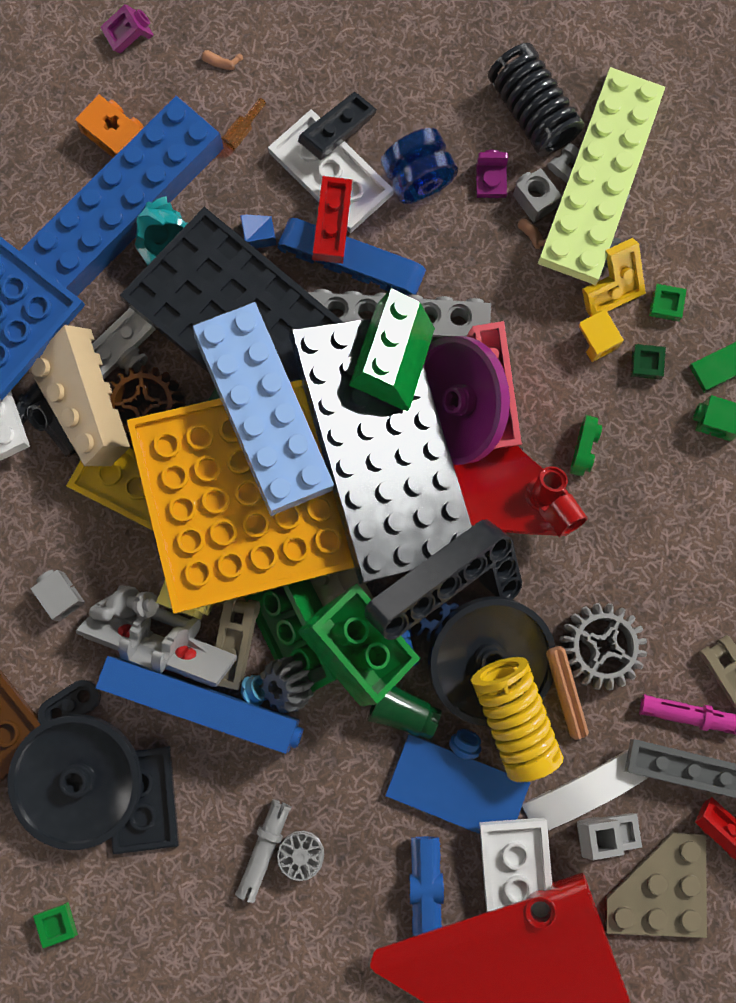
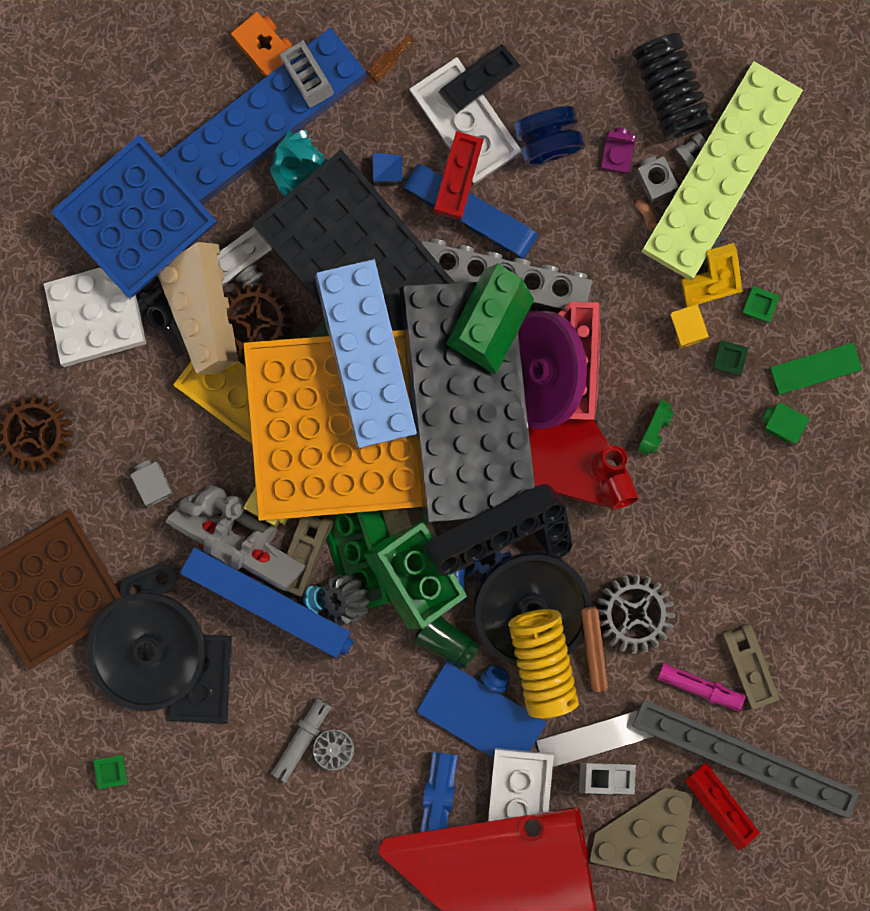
camera: 10 degrees right, 5 degrees up
(167, 157) = (314, 90): none -> light grey slope

